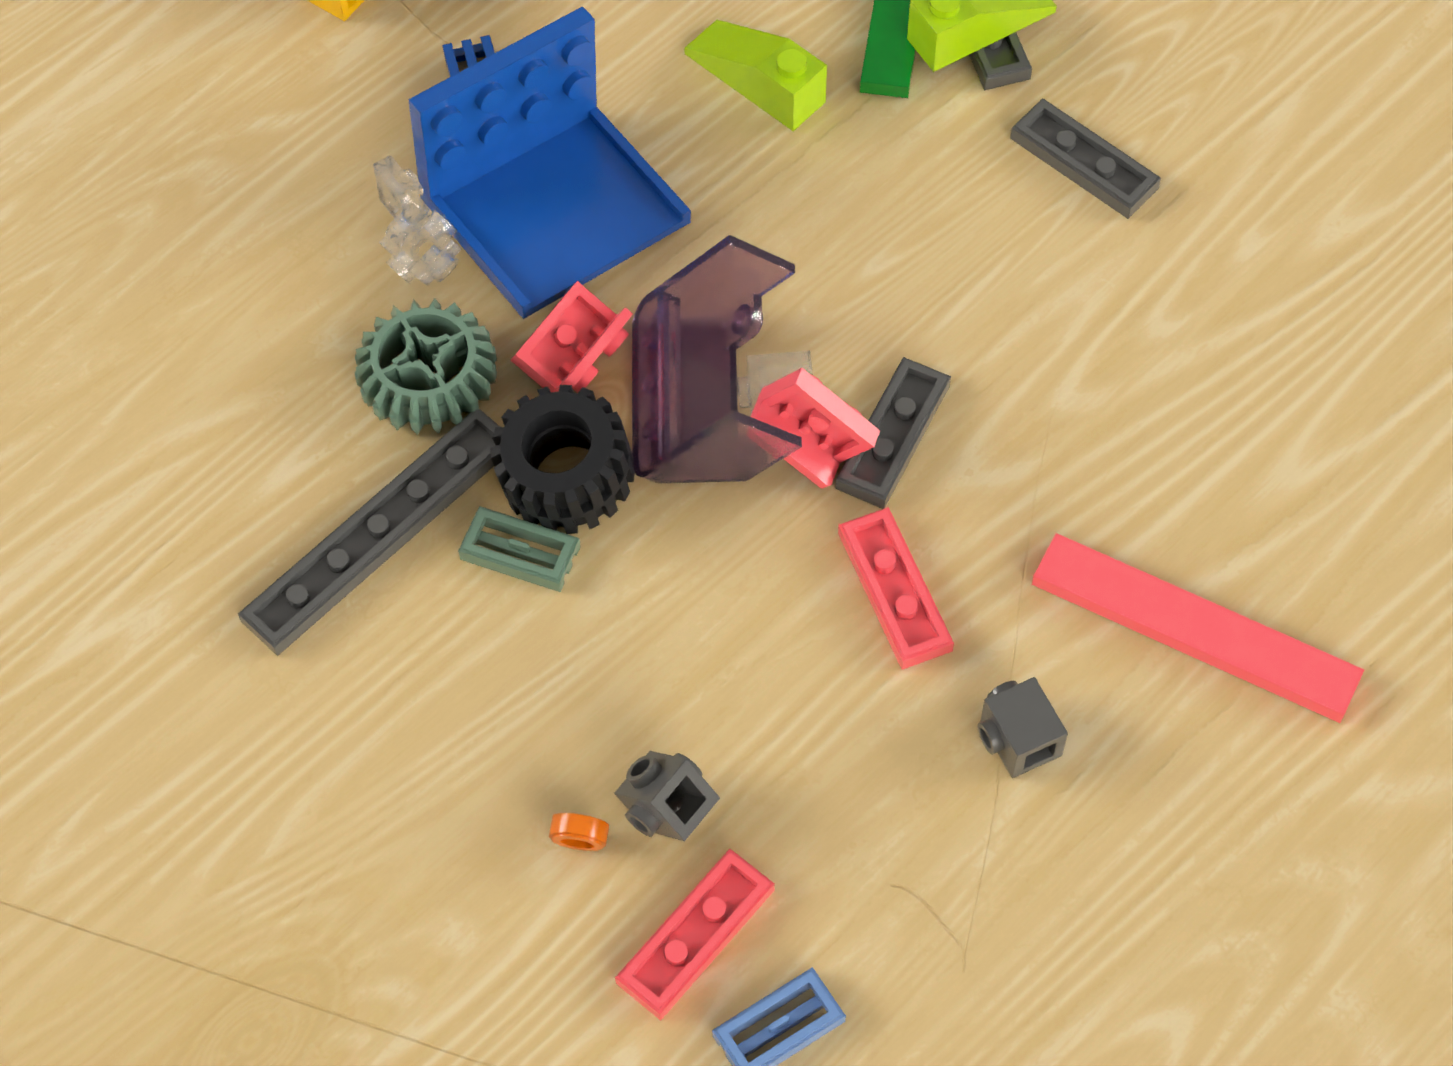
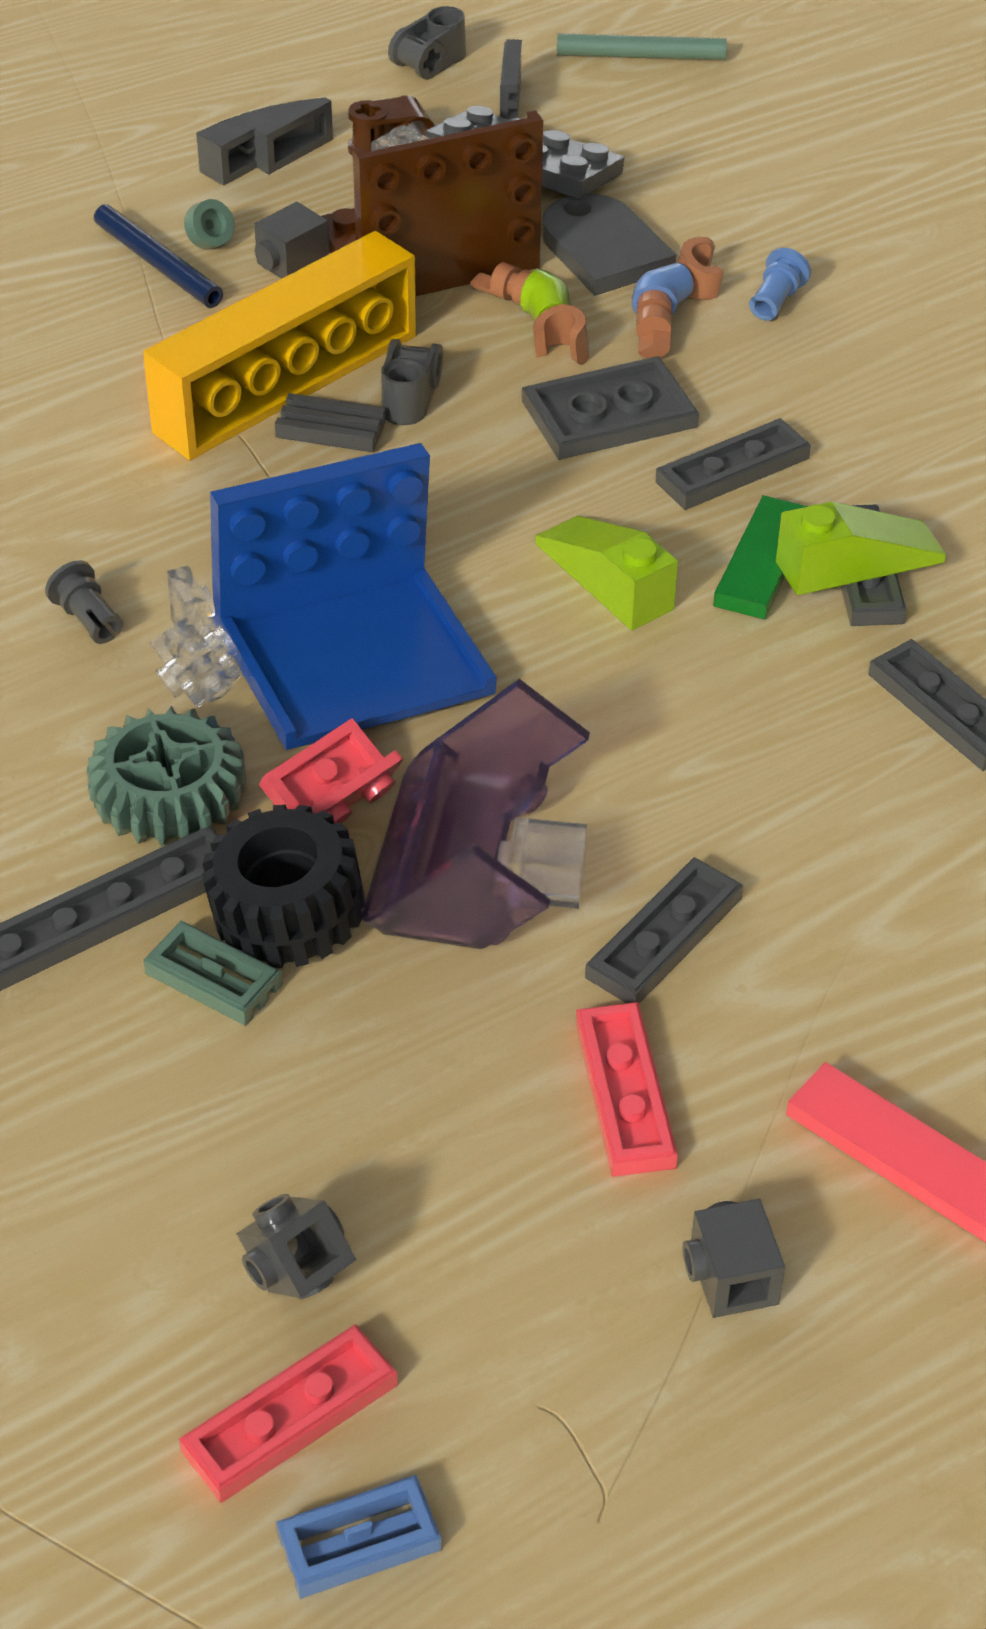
camera: 10 degrees right, 15 degrees down
(293, 194) = (80, 595): none -> dark grey pin
(578, 831) = (185, 1270): orange tile -> none
(825, 422) = (585, 901): coral bracket -> none

